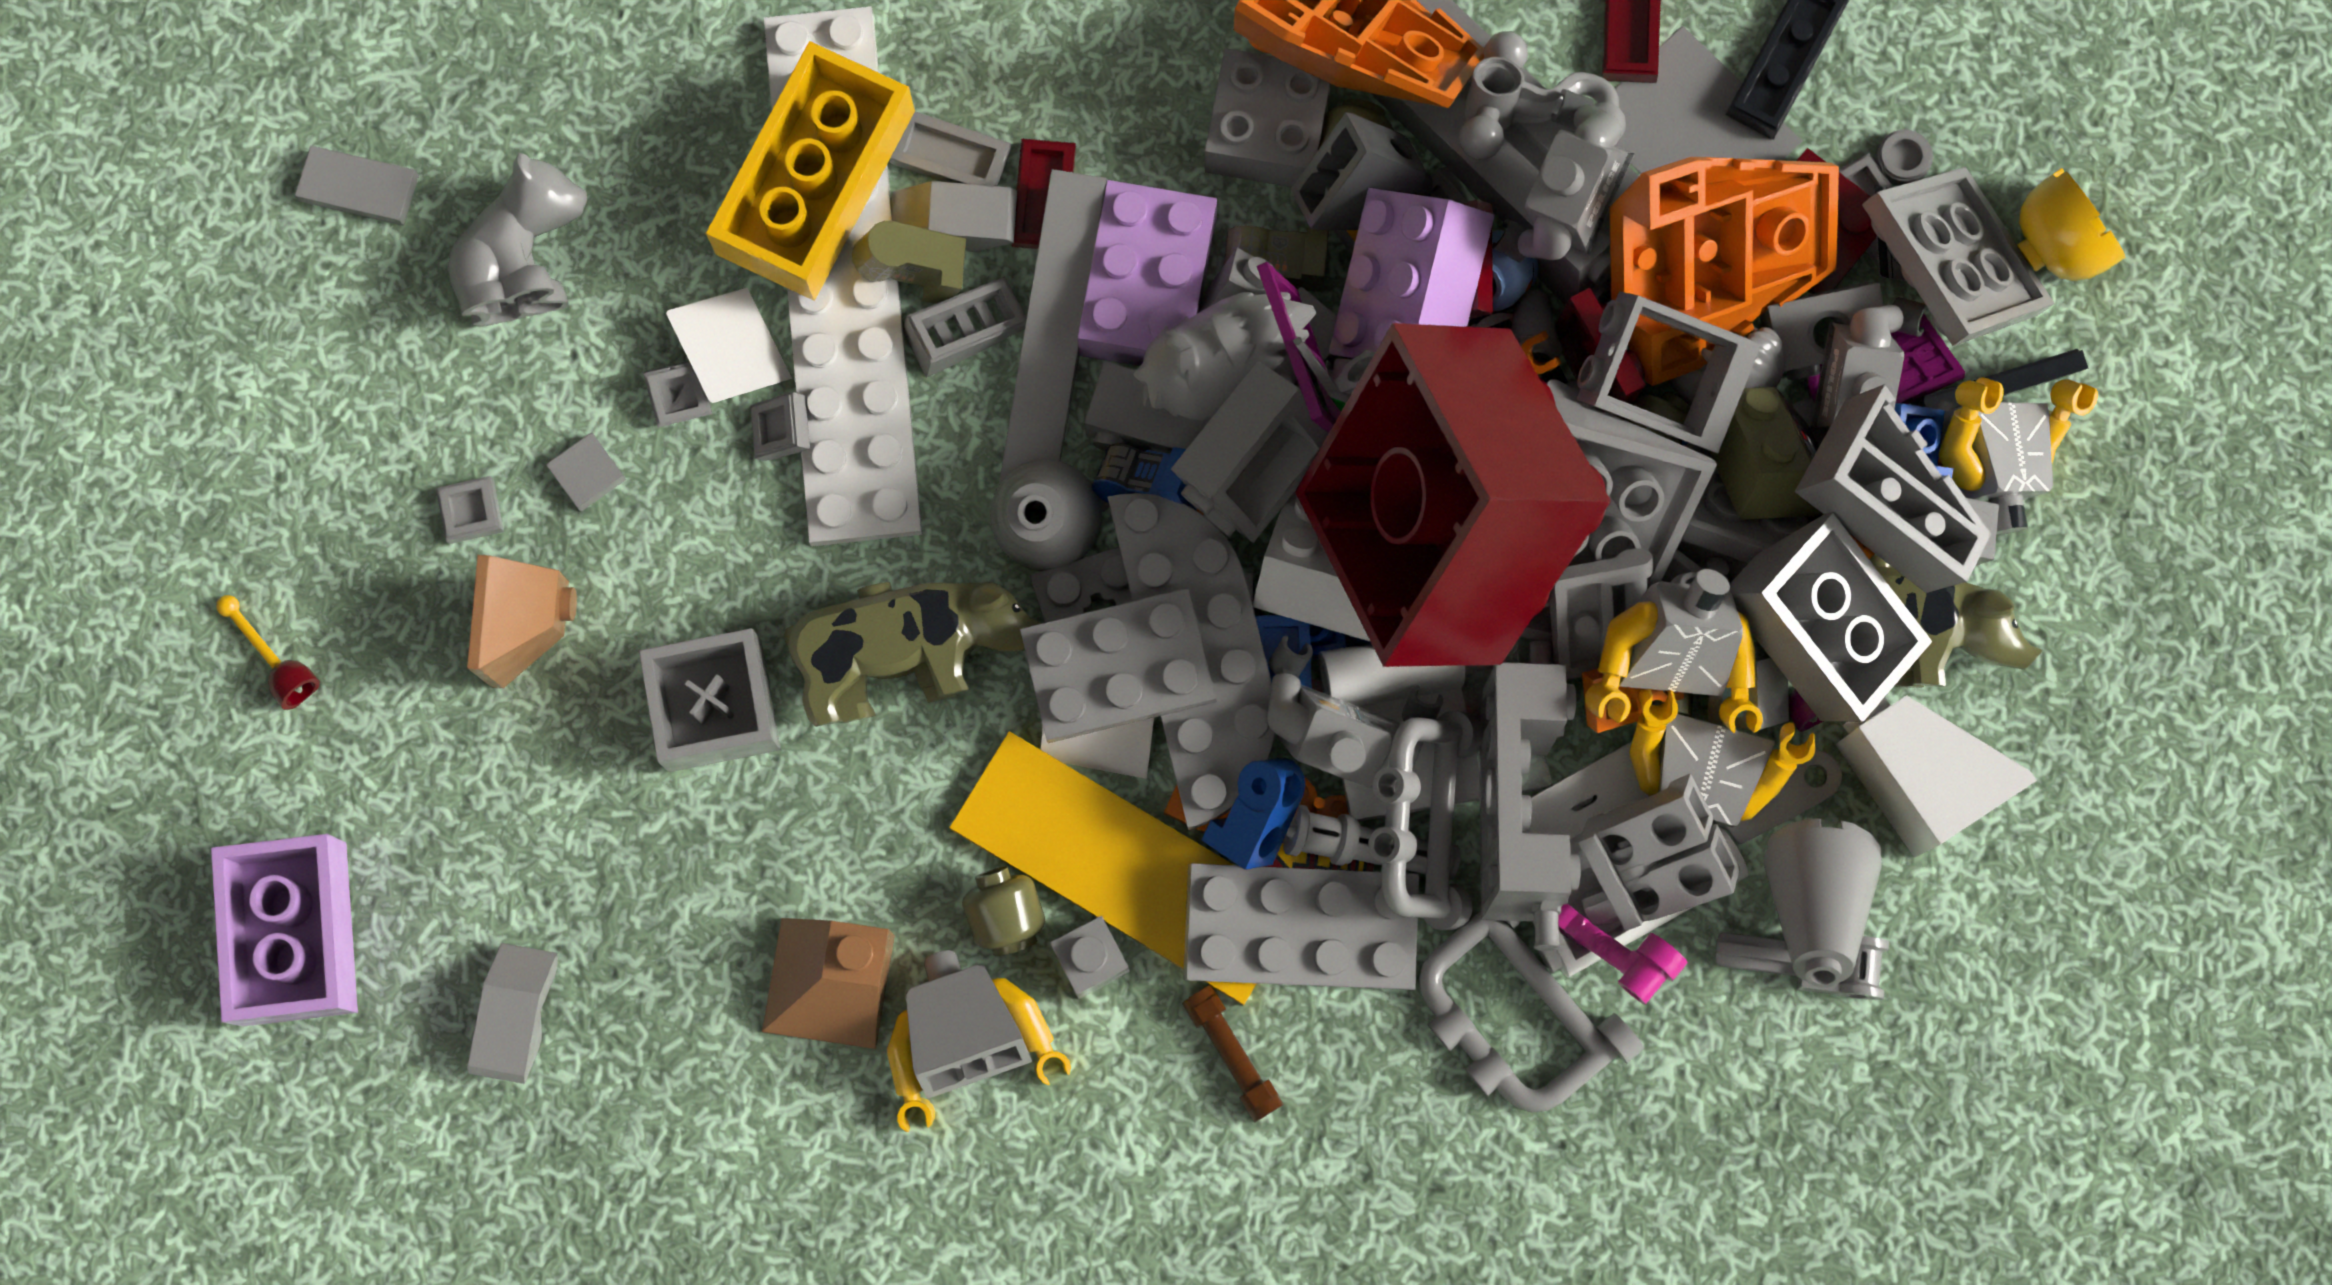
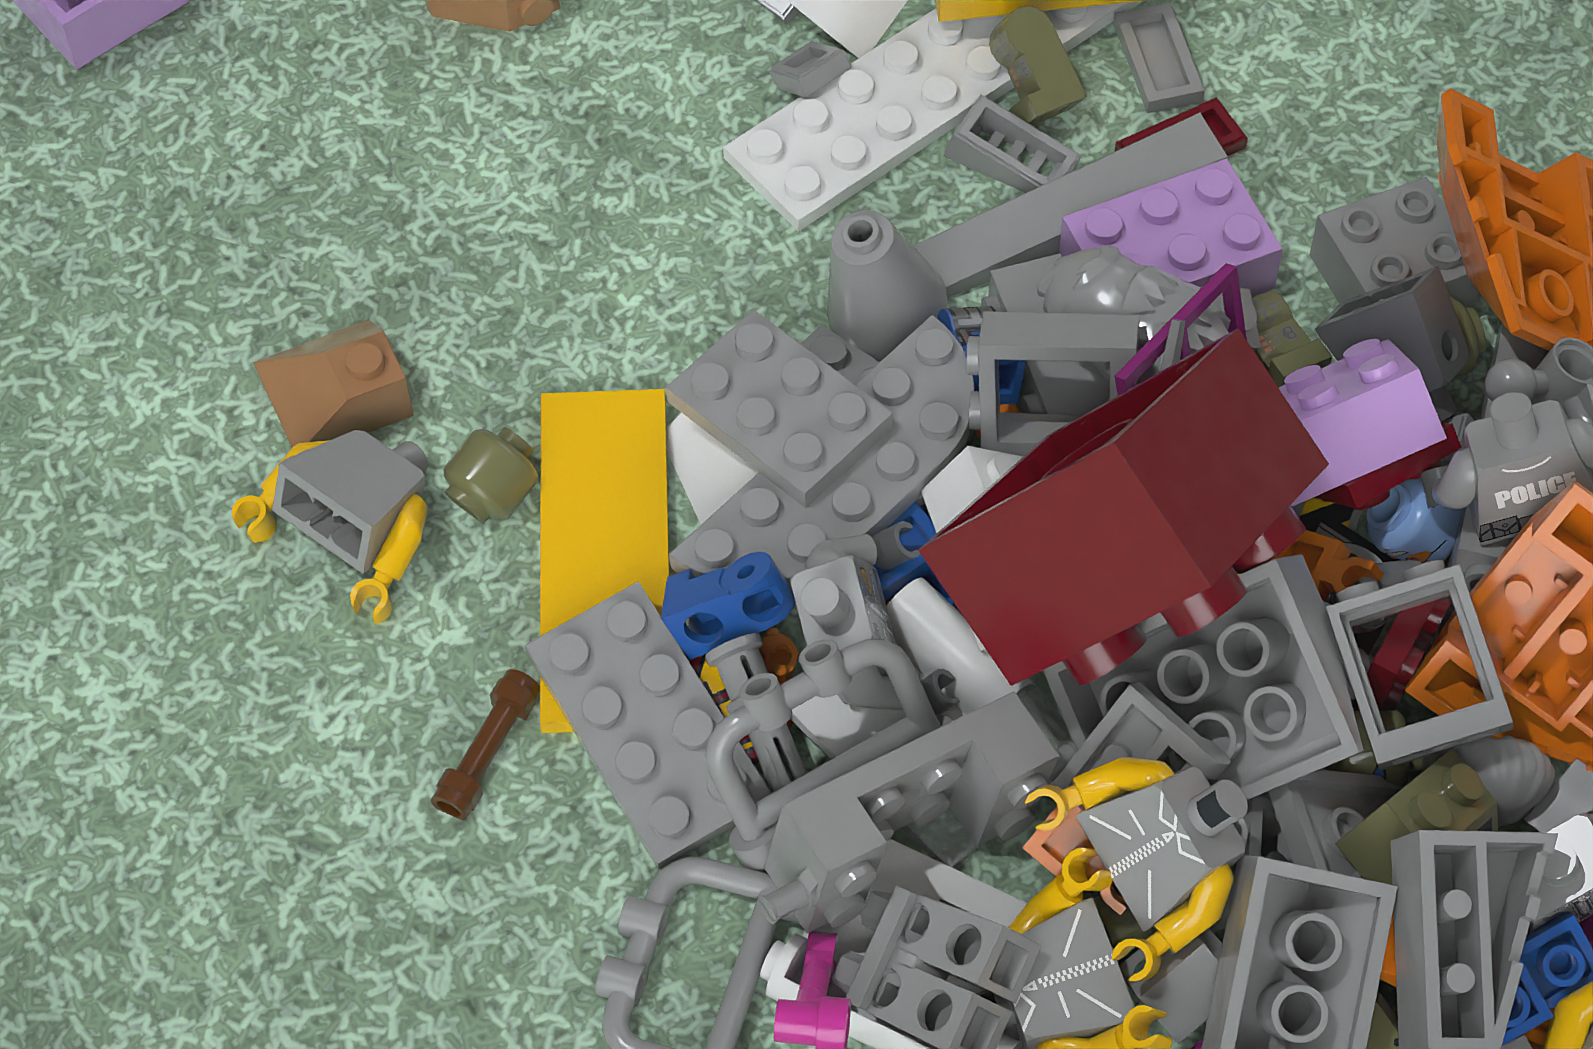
camera: 55 degrees right, 20 degrees down
(510, 1013) = (131, 167): light grey slope -> none
(709, 700) = (523, 145): light grey brick -> none
(897, 634) = (681, 246): olive animal -> none
(969, 211) = (1113, 86): light grey slope -> none
(1090, 957) = (494, 564): light grey brick -> none

